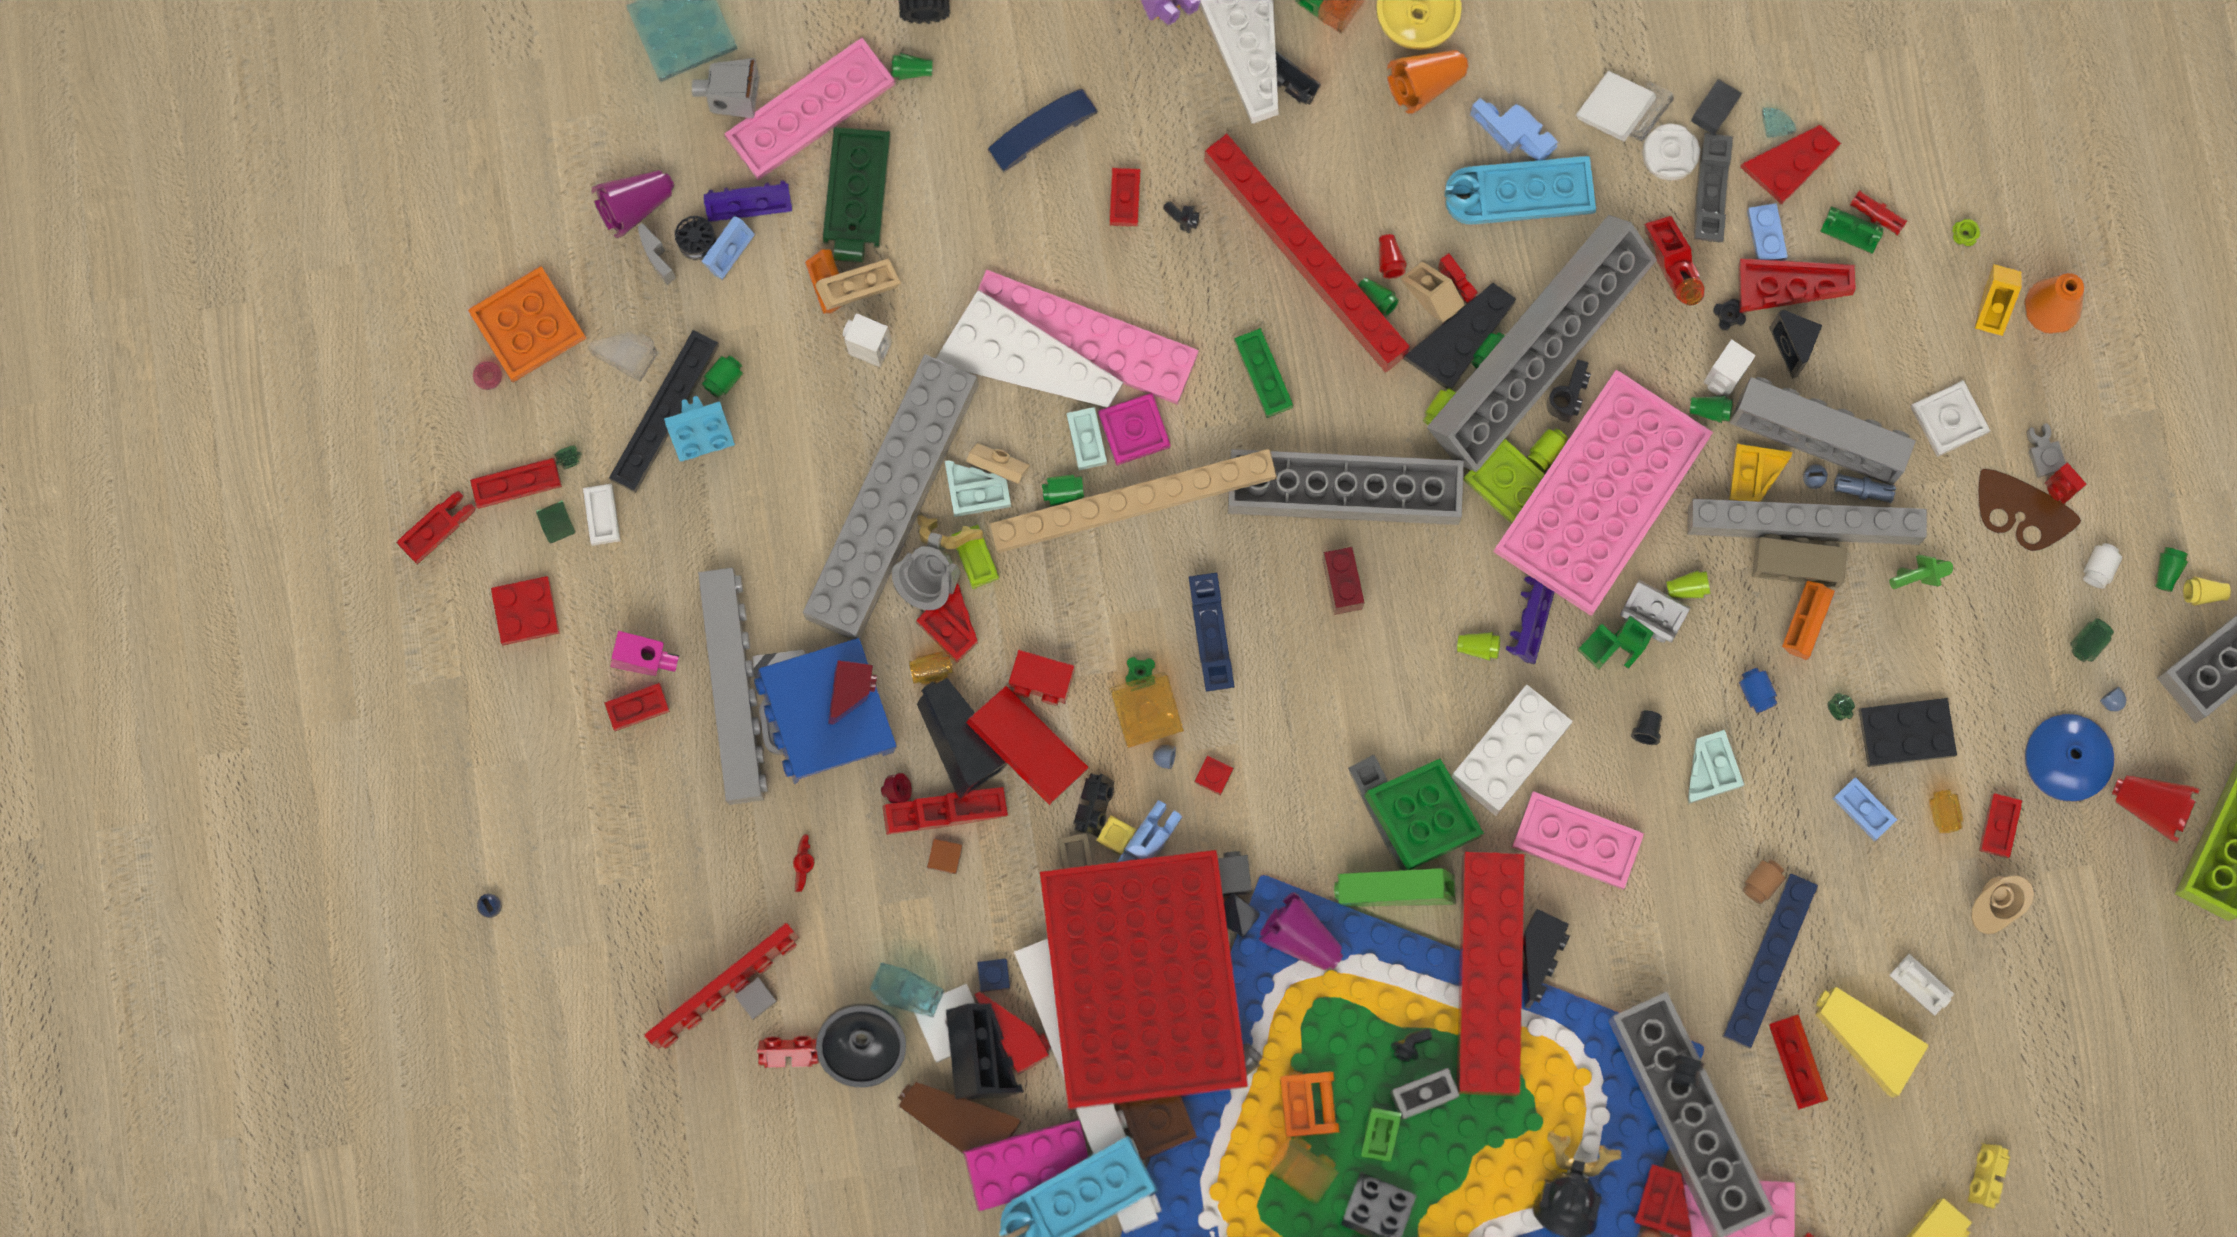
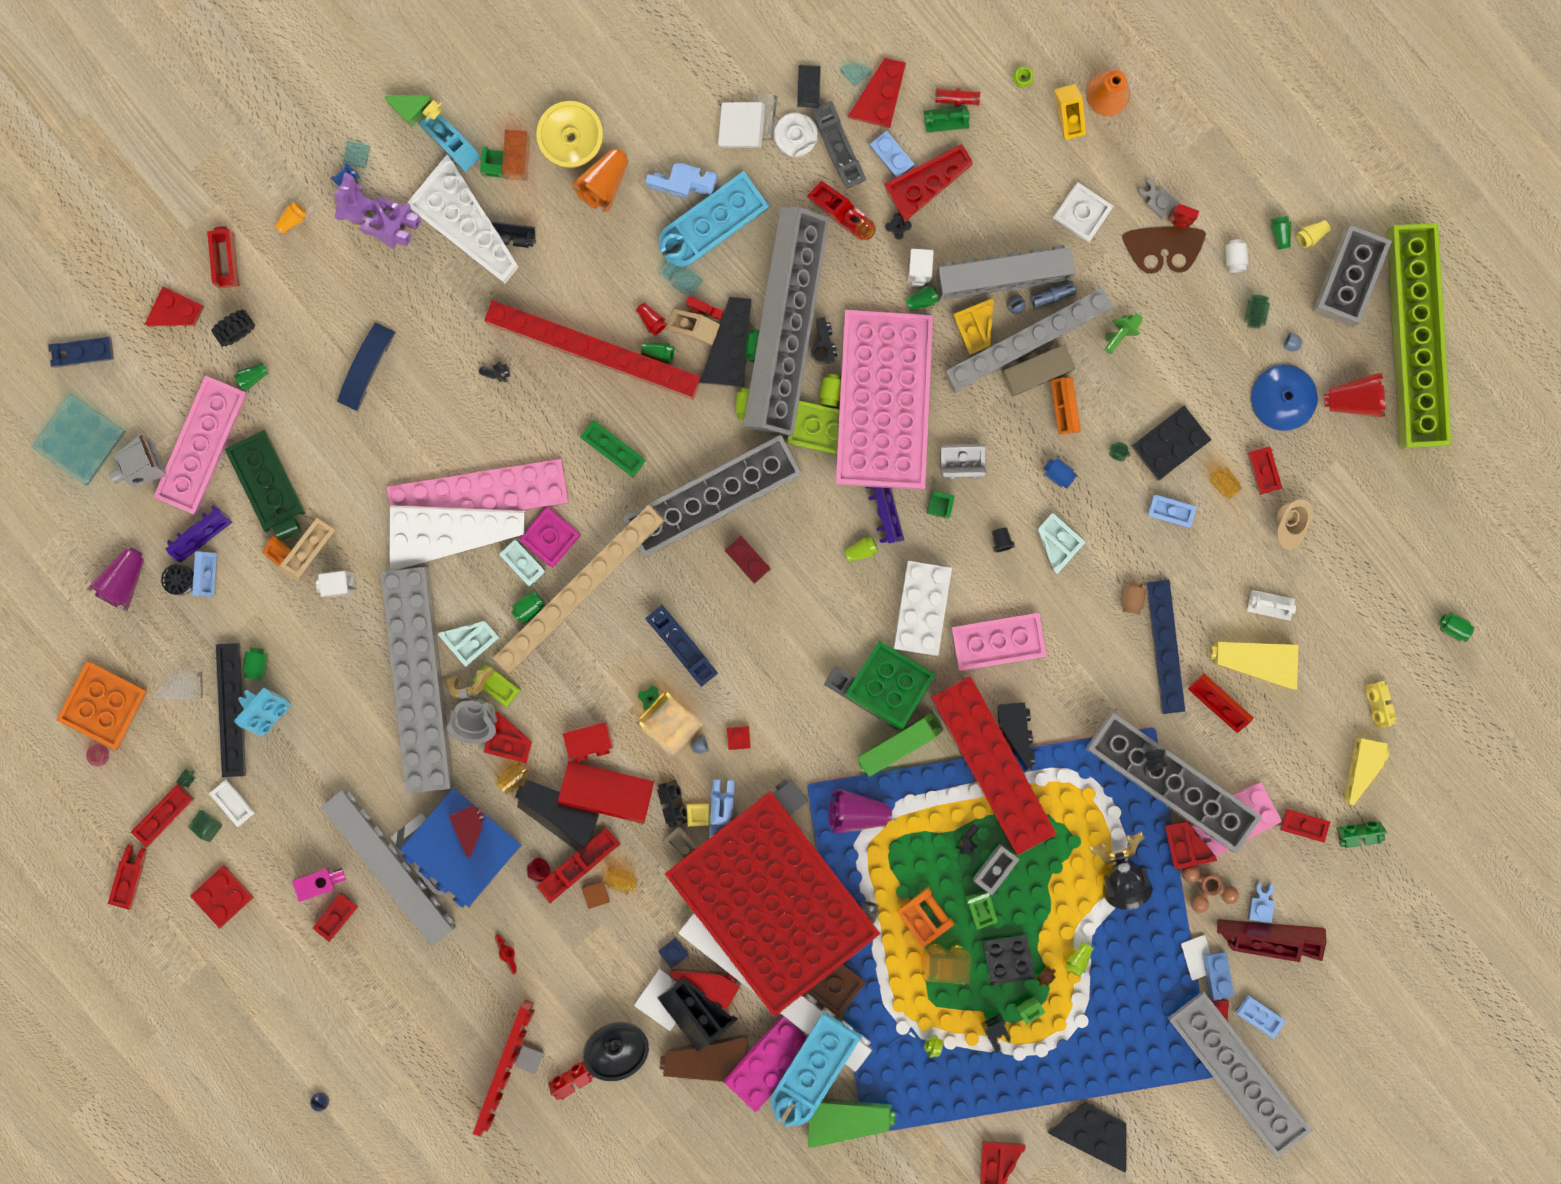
camera: 30 degrees left, 10 degrees up
(654, 249) = (154, 605): light grey slope -> none
(906, 990) = (623, 999): clear light blue slope -> none
(983, 855) = (620, 880): none -> clear yellow brick
(998, 462) = (473, 614): tan plate -> none
(1125, 197) = (449, 382): red plate -> none
(1239, 915) = (809, 821): black slope -> none
(1452, 238) = (685, 282): none -> clear light blue plate
(1634, 639) = (960, 487): green panel -> none
(1689, 586) = (976, 428): lime cone -> none
(1794, 339) = (952, 220): black slope -> none
(2129, 1136) = (1456, 627): none -> green brick

